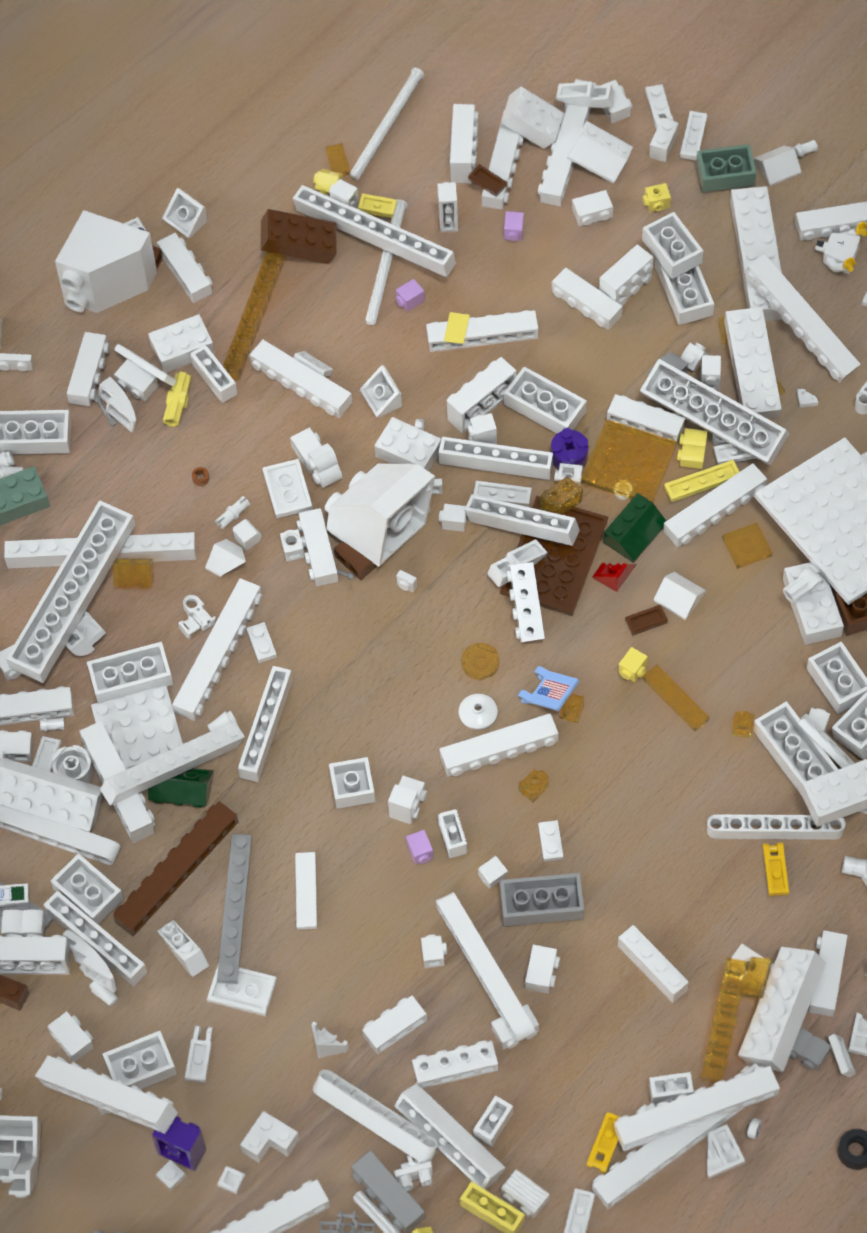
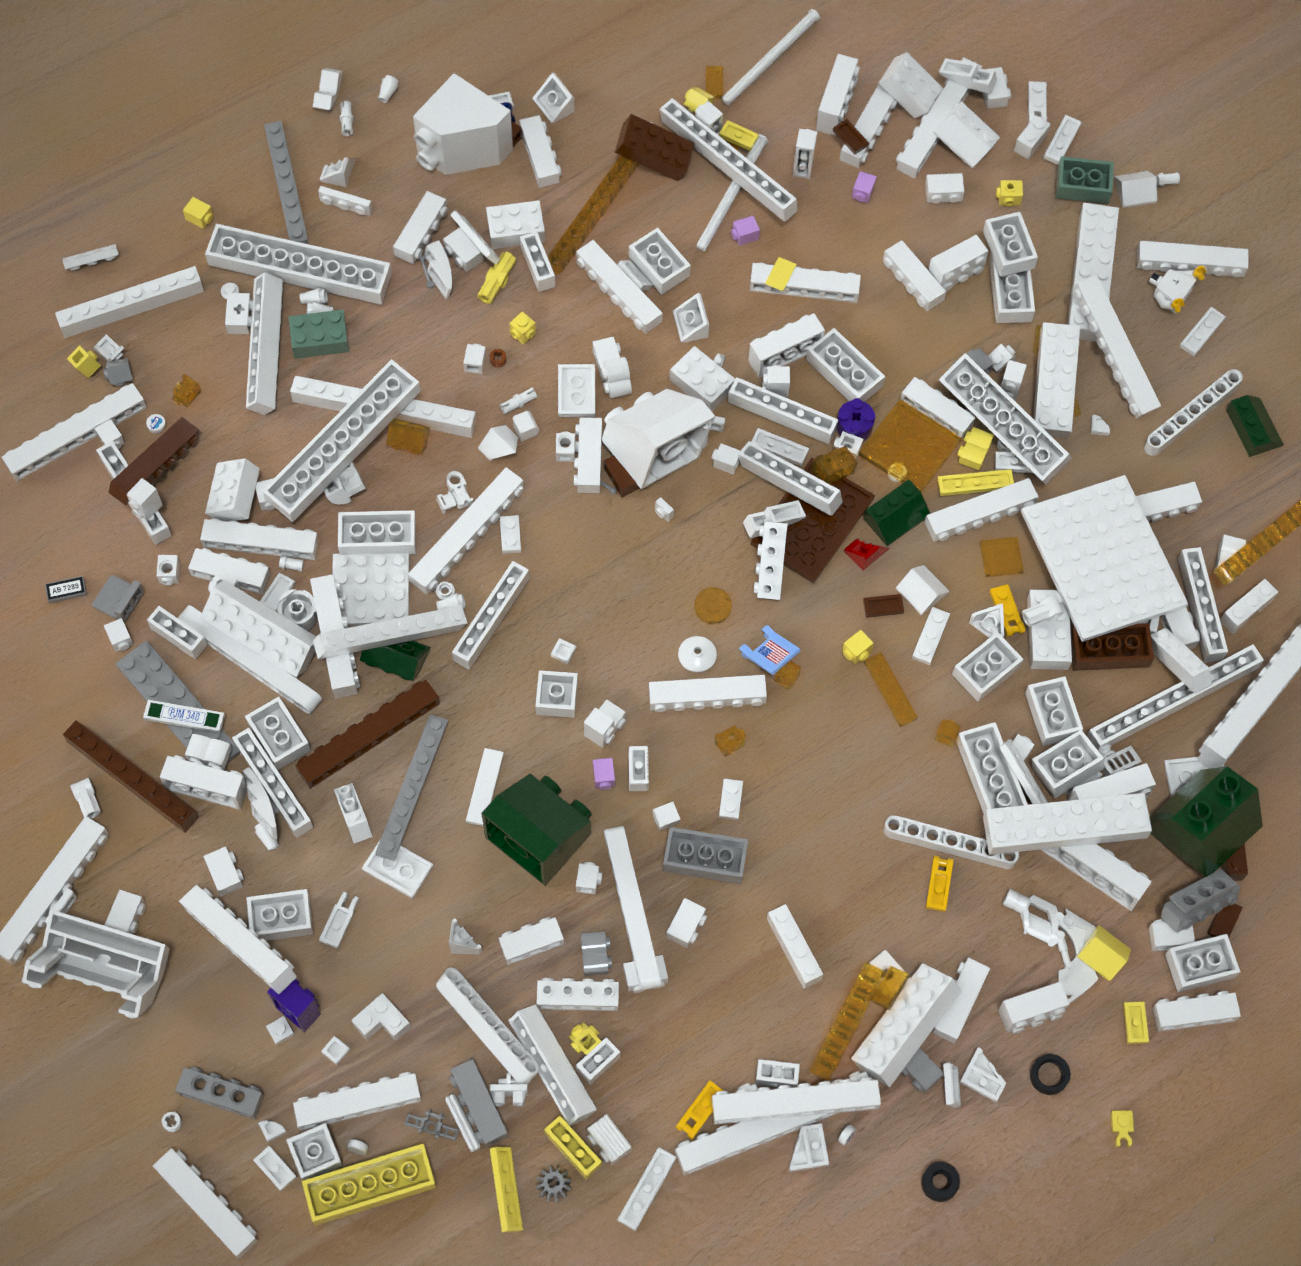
camera: 10 degrees right, 5 degrees up
(15, 241) = (388, 87): none -> white cone
(178, 482) = (474, 358): none -> white brick
(212, 707) = (444, 586): none -> white plate
(217, 441) = (522, 328): none -> light yellow brick
(334, 344) = (659, 261): none -> white brick
(346, 741) = (563, 651): none -> white tile
(369, 913) = (536, 826): none -> dark green slope
(460, 1021) = (595, 953): none -> light grey brick
(479, 1101) = (590, 1041): none -> light yellow brick
(700, 637) = (930, 636): none -> white plate
(754, 609) = (989, 620): none -> white slope
(763, 652) = (987, 666): none -> white brick
(766, 594) = (1003, 595): none -> yellow plate

